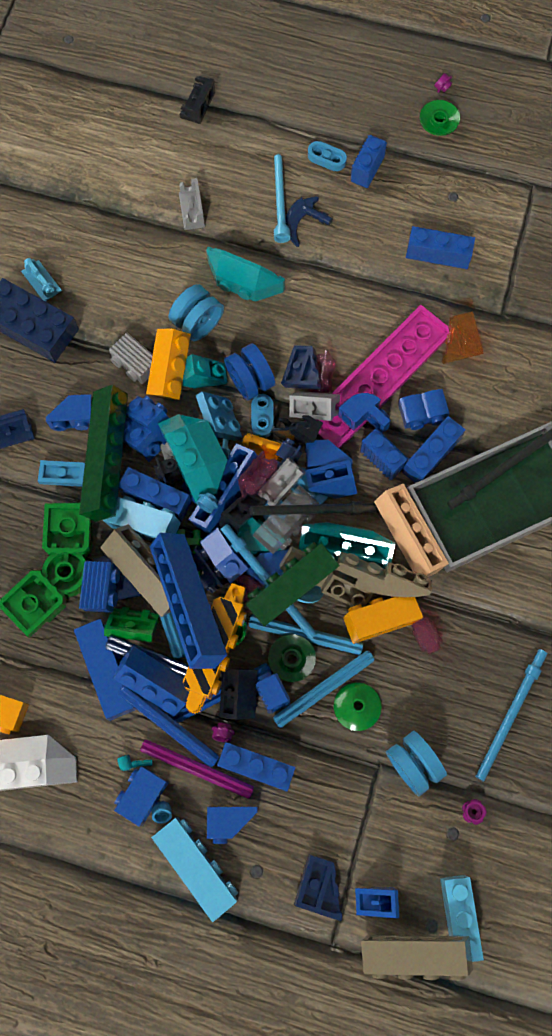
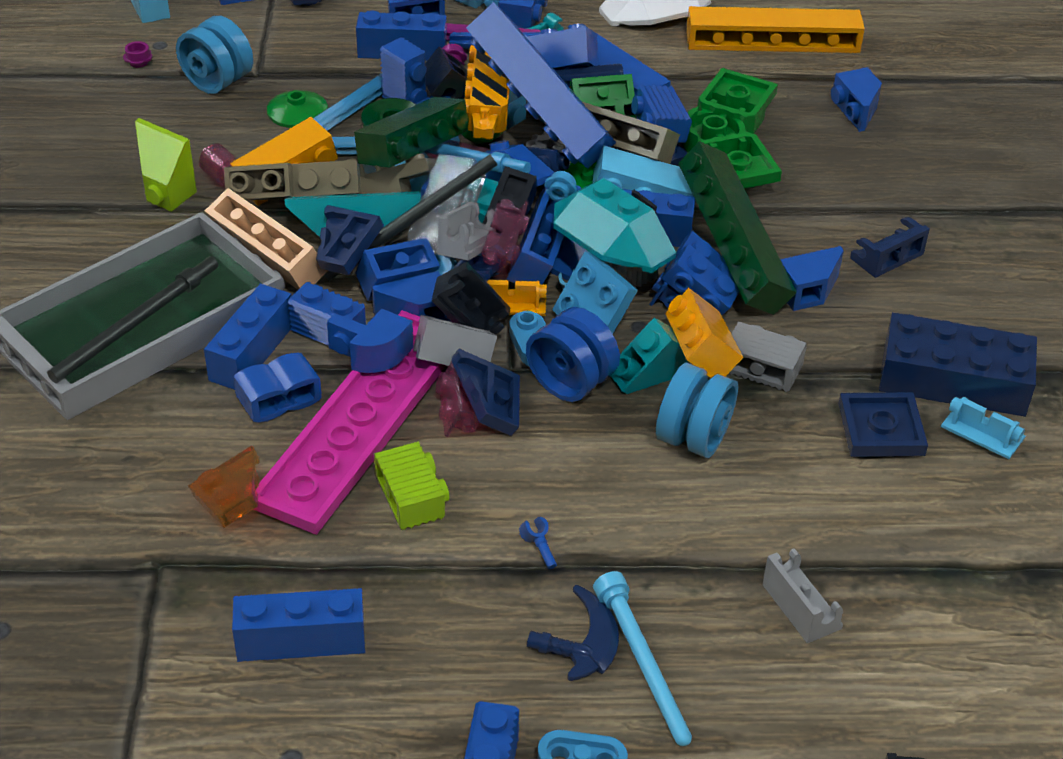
camera: 160 degrees right, 30 degrees down
(61, 473) = (789, 219): dark azure plate -> none
(94, 295) = (882, 424): none -> dark blue plate
(243, 276) = (652, 496): teal wedge -> none
(307, 275) = (539, 539): none -> blue hand
(361, 501) = (346, 238): none -> dark blue wing
(365, 320) = (411, 484): none -> lime brick
(472, 630) = (165, 165): none -> lime slope
(532, 673) = (76, 161): dark azure bar -> none

